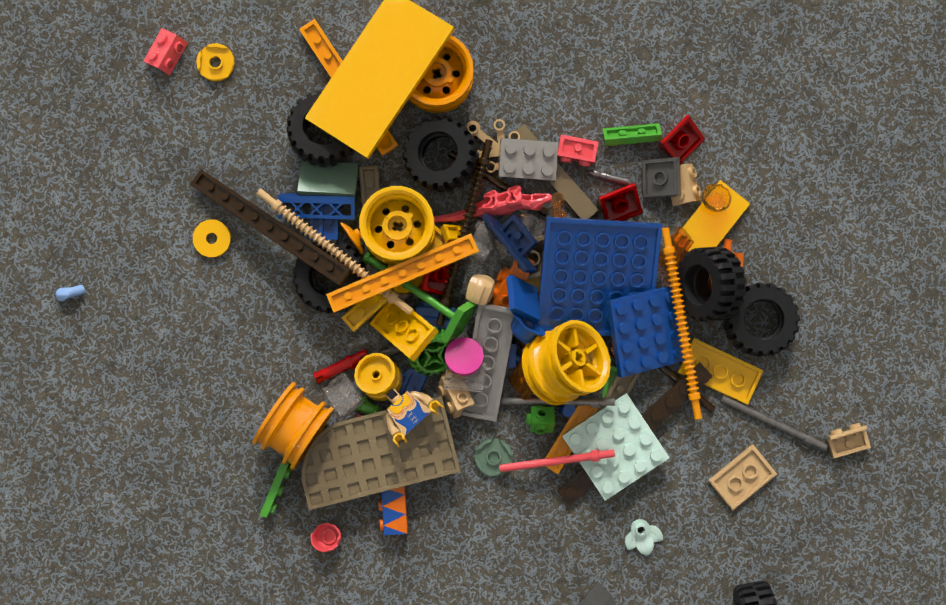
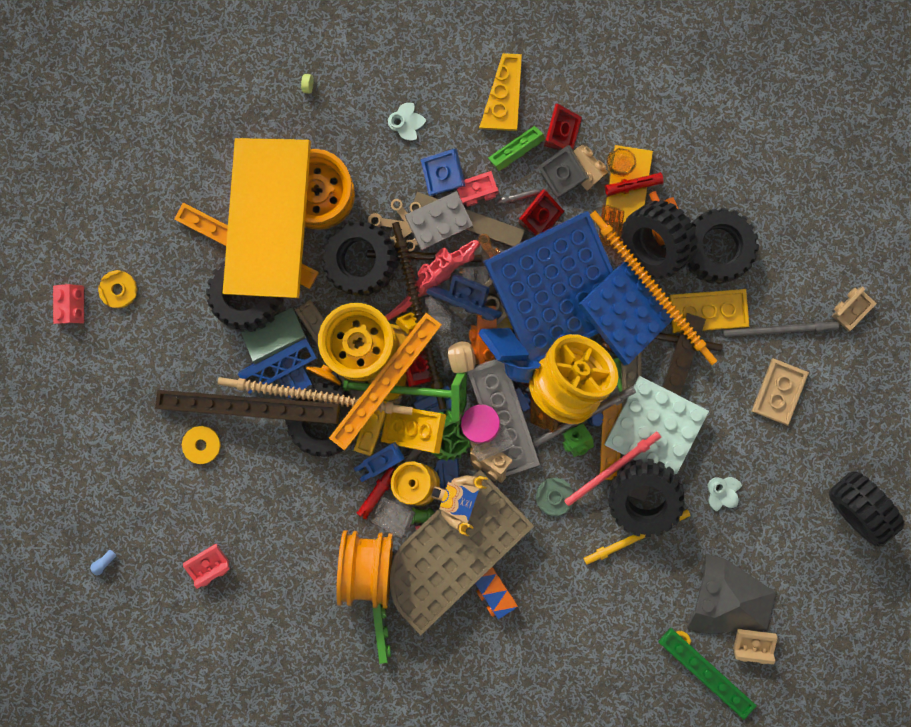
camera: 25 degrees left, 0 degrees up
(158, 346) = (207, 566): none -> coral bracket
(326, 537) = (448, 650): coral hair -> none
(359, 340) = (381, 461): none -> blue hinge
(507, 530) = (603, 553): none -> yellow bar
(551, 59) = (409, 121): none -> light aqua plate
(555, 119) = (443, 172): none -> blue tile
(555, 518) = (640, 520): none -> black tyre
(644, 86) = (503, 101): none -> yellow wing
(716, 223) = (633, 184): none -> red pin

